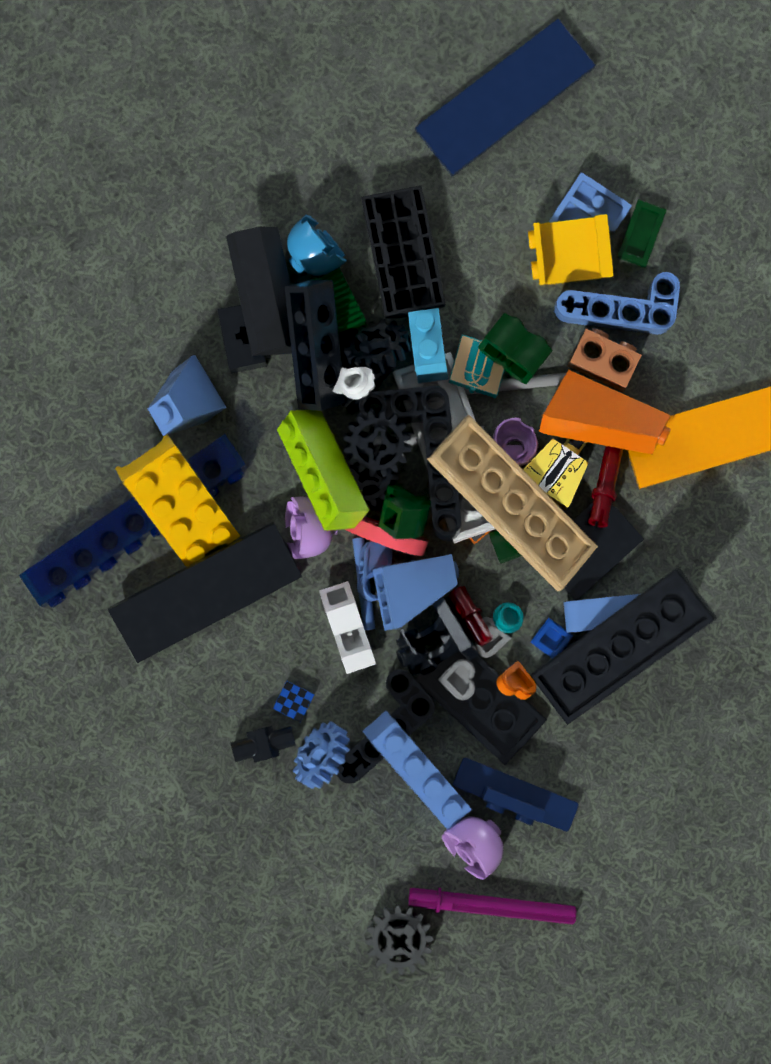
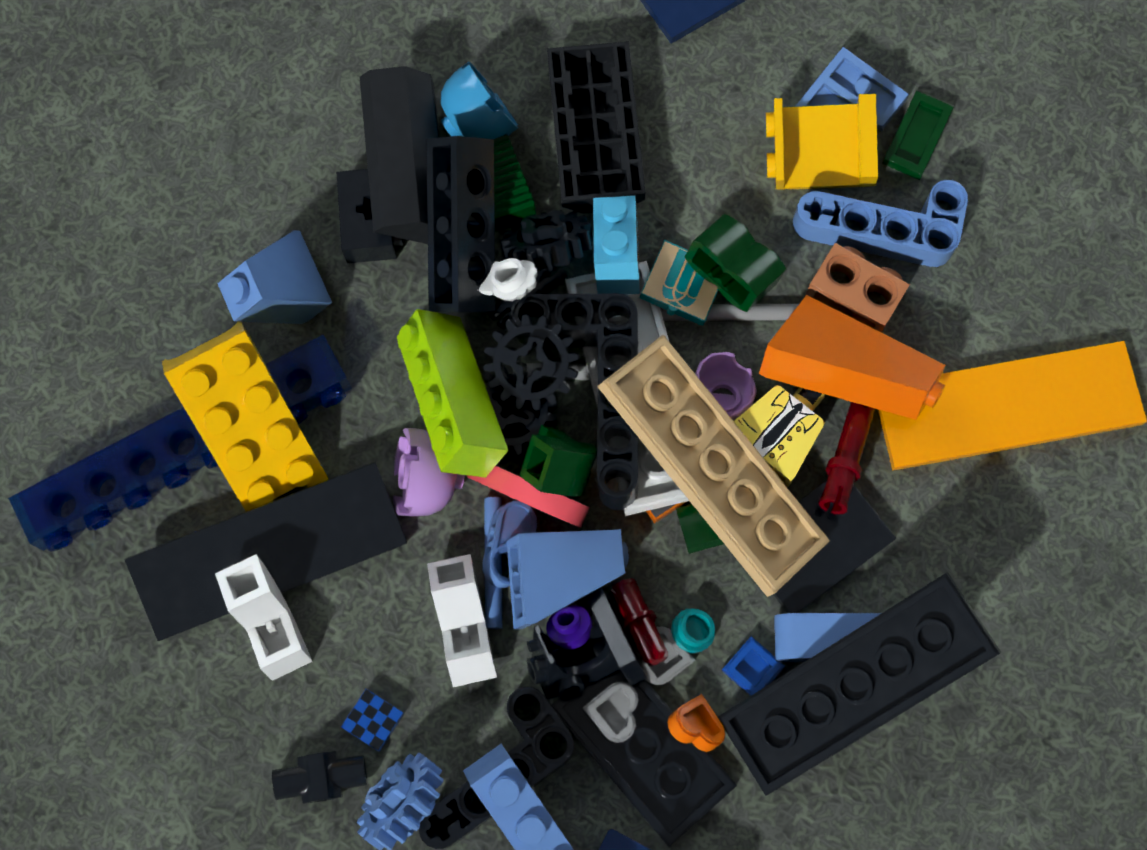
camera: 10 degrees right, 10 degrees down
(210, 639) = (264, 614): none -> white brick
(426, 632) = (569, 627): none -> dark purple plate

